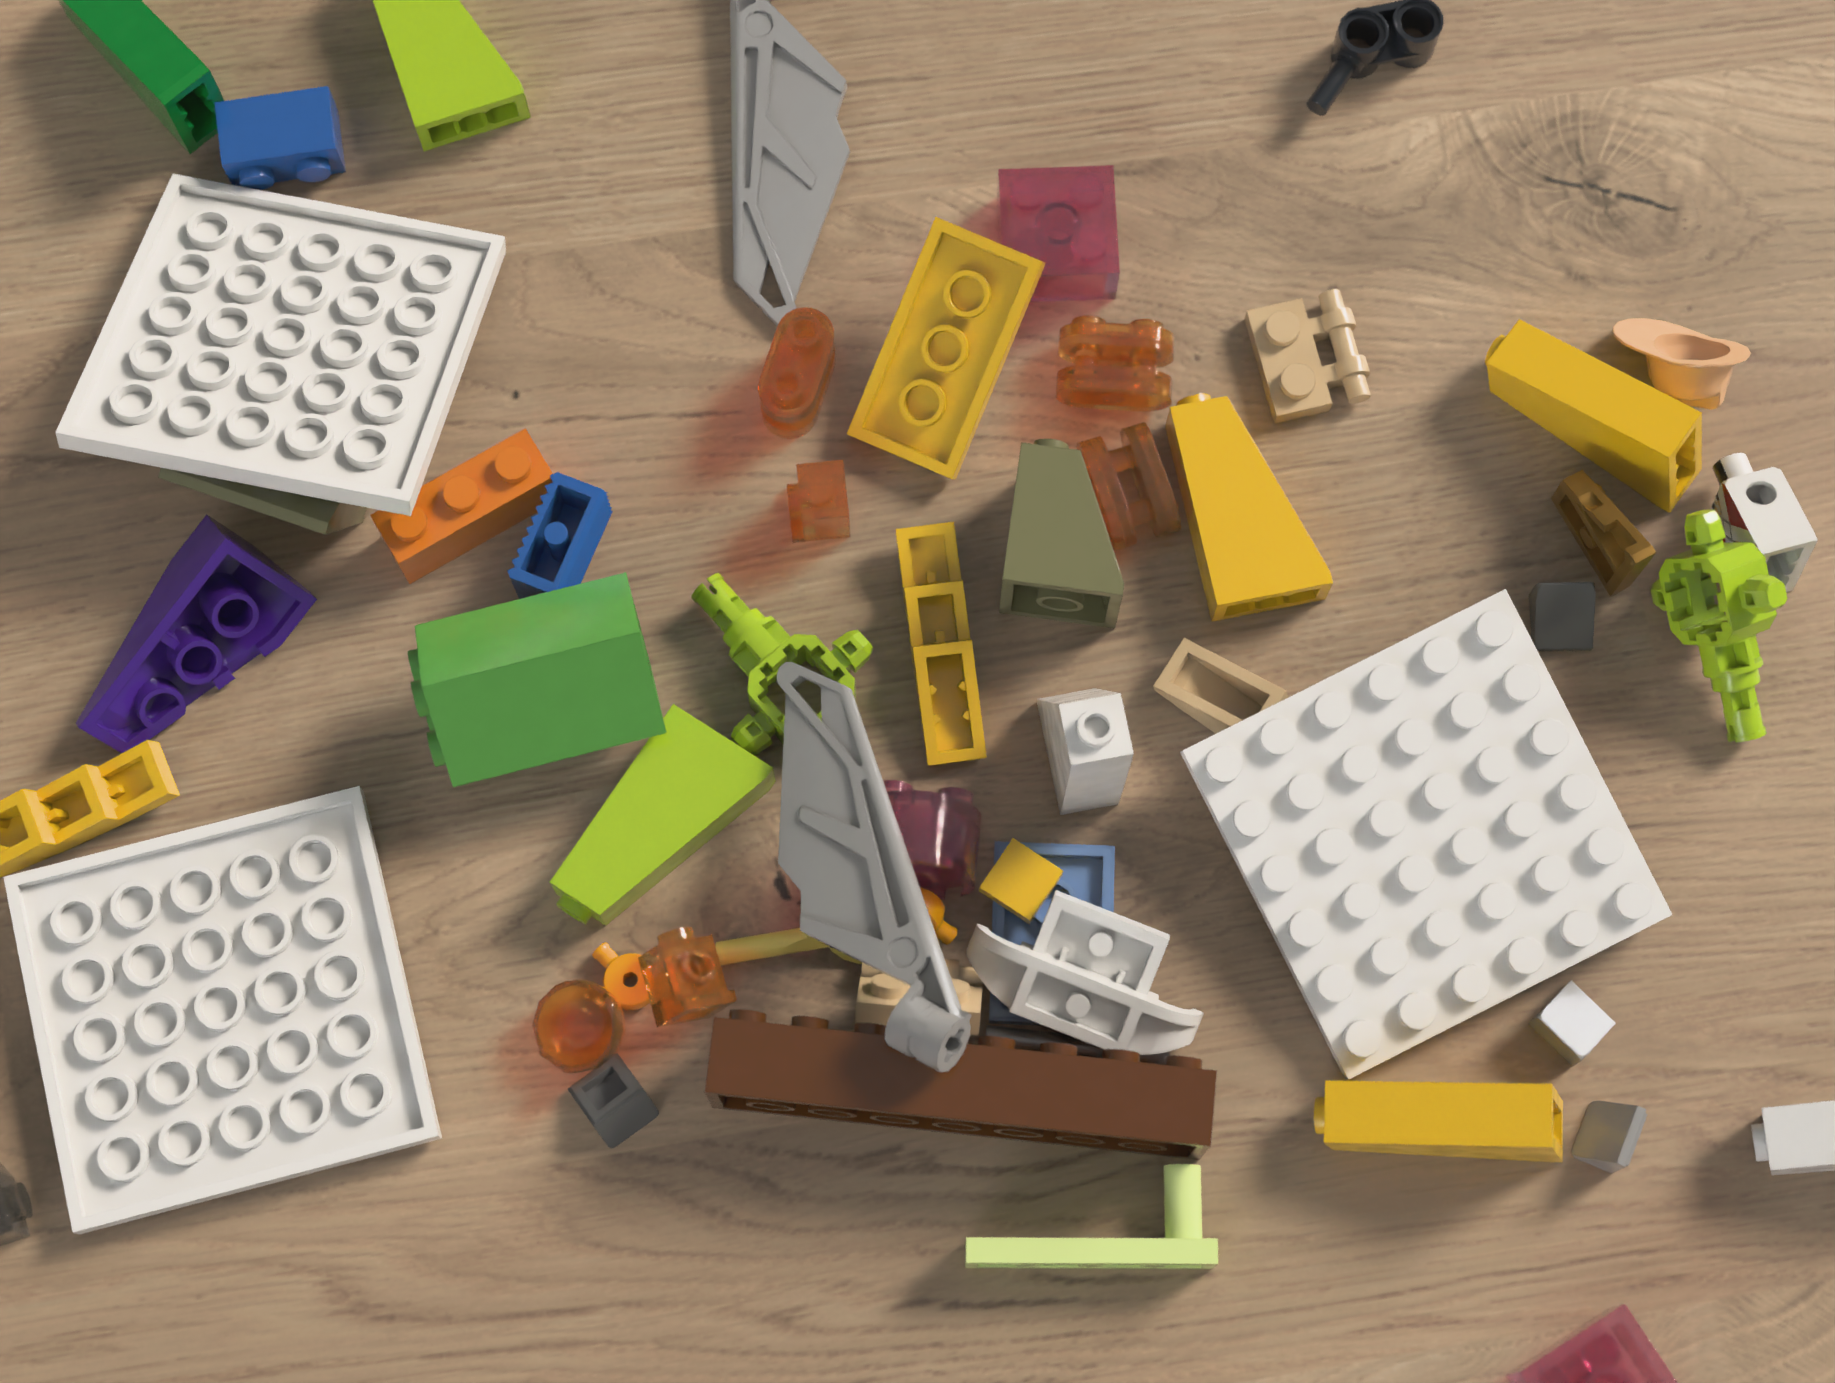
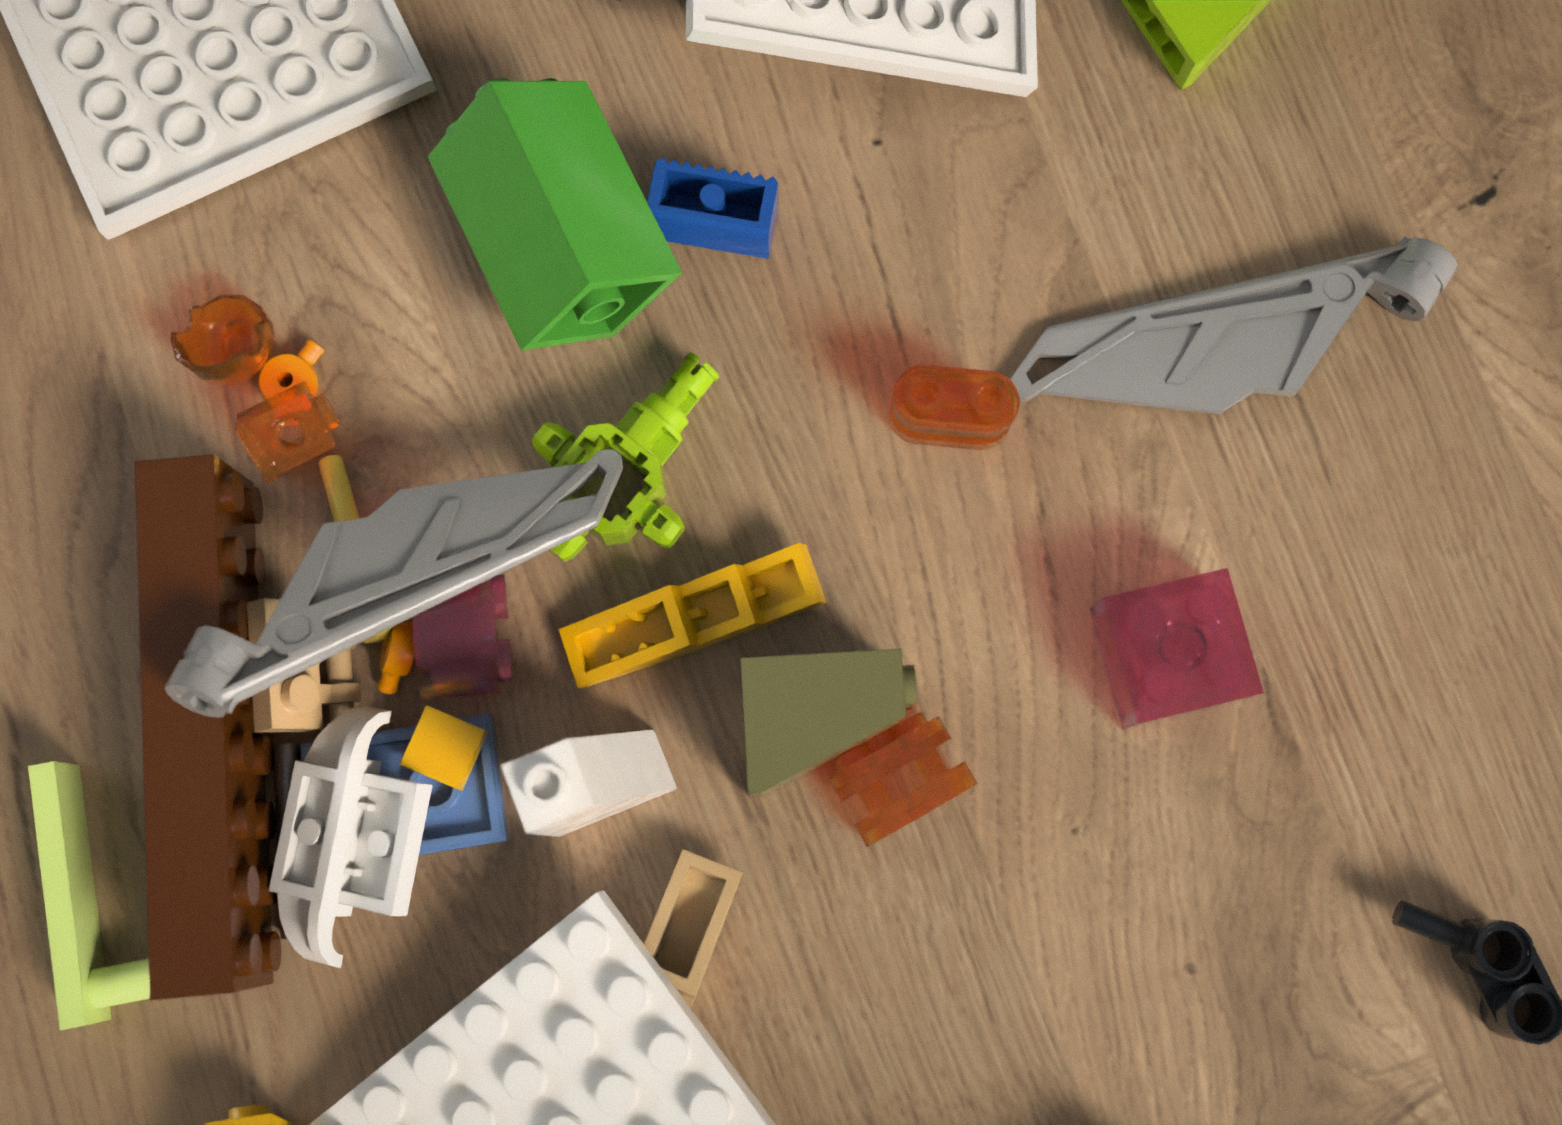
camera: 80 degrees right, 5 degrees up
(467, 506) = (739, 114): orange brick -> none
(614, 1101) = (166, 393): dark grey slope -> none
(658, 815) = (453, 368): lime slope -> none
(819, 502) = (817, 460): clear orange brick -> none
(945, 348) = (1012, 553): yellow plate -> none
(1096, 346) = (1067, 766): clear orange brick -> none
(1239, 519) = (890, 911): yellow slope -> none
(1290, 361) = (1093, 934): tan plate -> none

